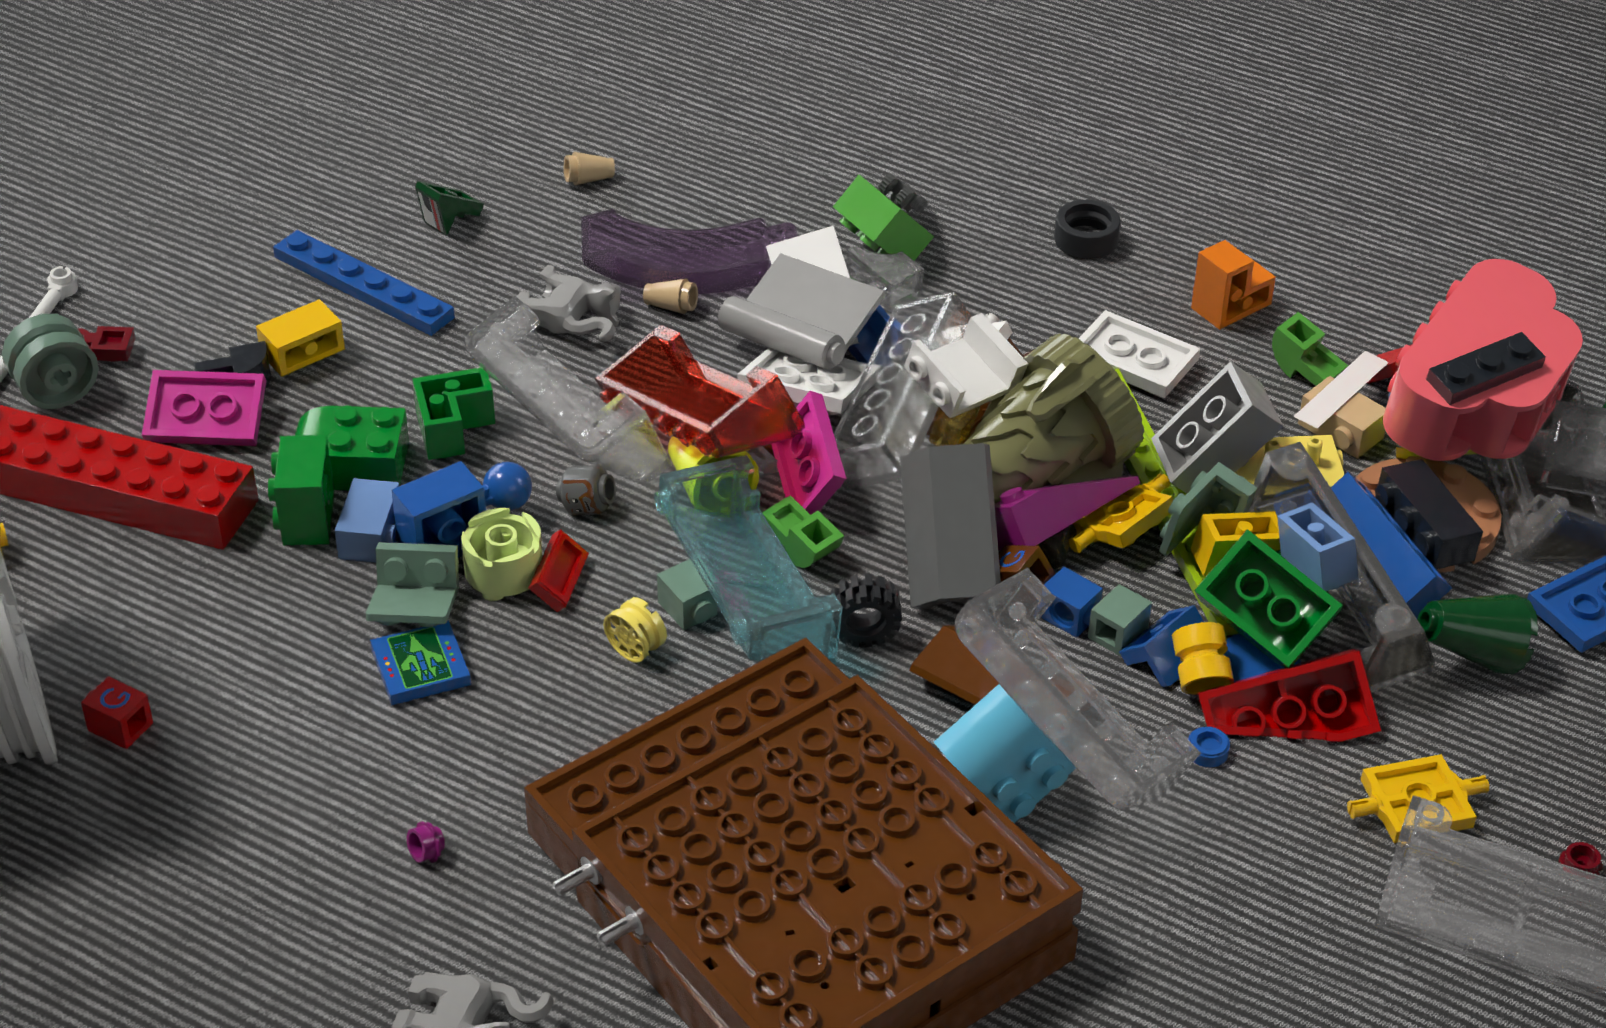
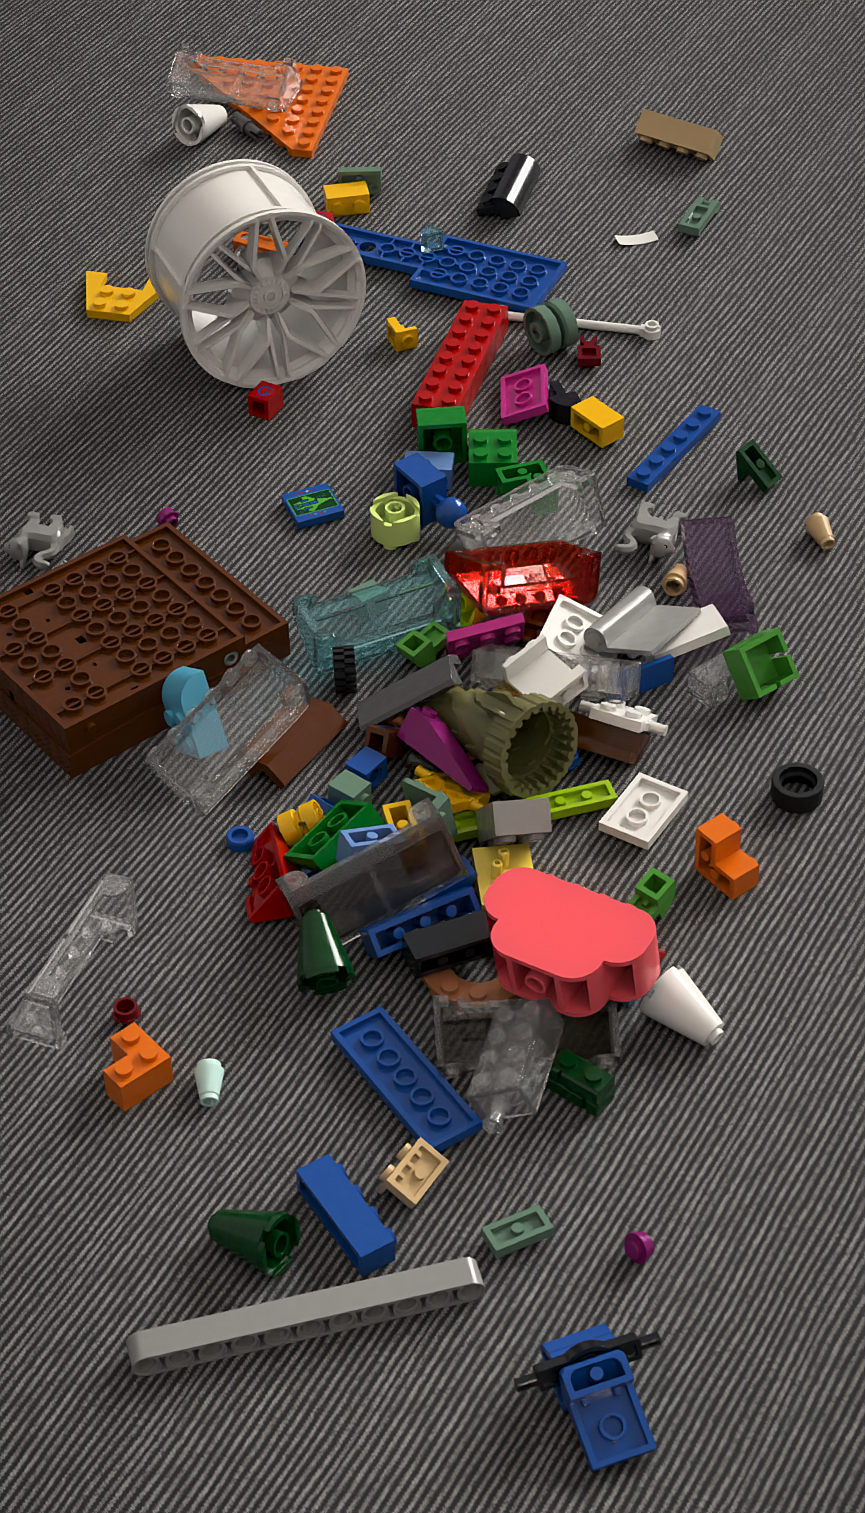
camera: 90 degrees right, 0 degrees up
(414, 584) = (360, 492): sand green bracket -> none
(558, 570) = (388, 548): red tile -> none
(635, 629) = (332, 578): light yellow wheel -> none
(902, 193) = (799, 673): dark grey hinge -> none
(1394, 784) = (185, 932): yellow plate -> none
(1485, 368) = (523, 913): black plate -> none

